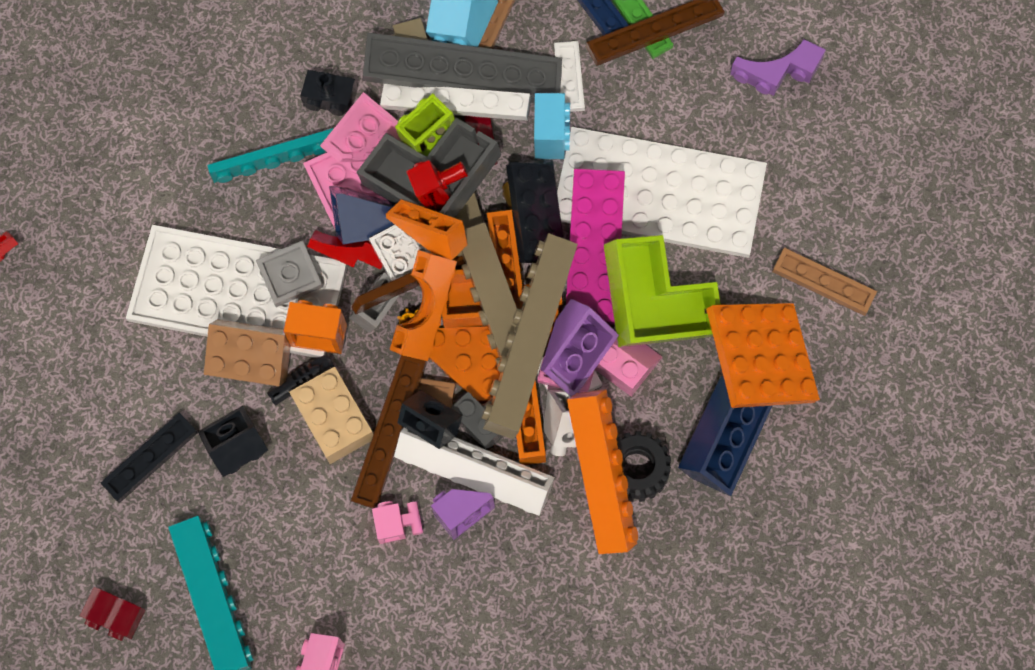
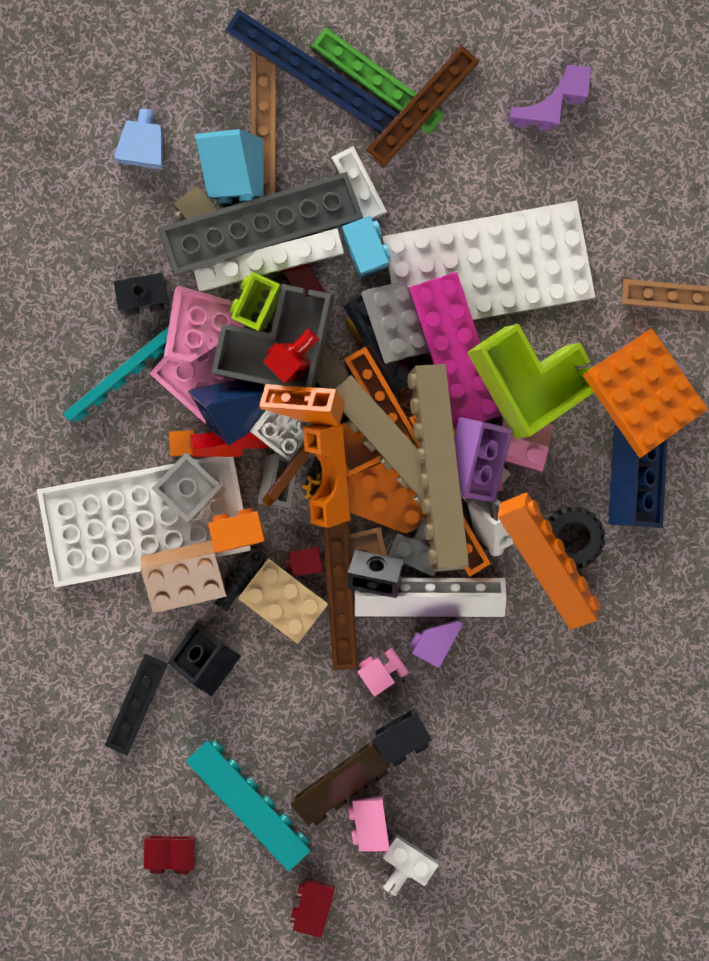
camera: 30 degrees left, 15 degrees up
(303, 233) = (180, 443): none -> orange tile
(307, 611) = (339, 783): none -> dark brown slope
(369, 387) = (304, 561): none -> dark red brick
(385, 586) = (401, 738): none -> black brick
(548, 198) = (395, 322): none -> light grey plate

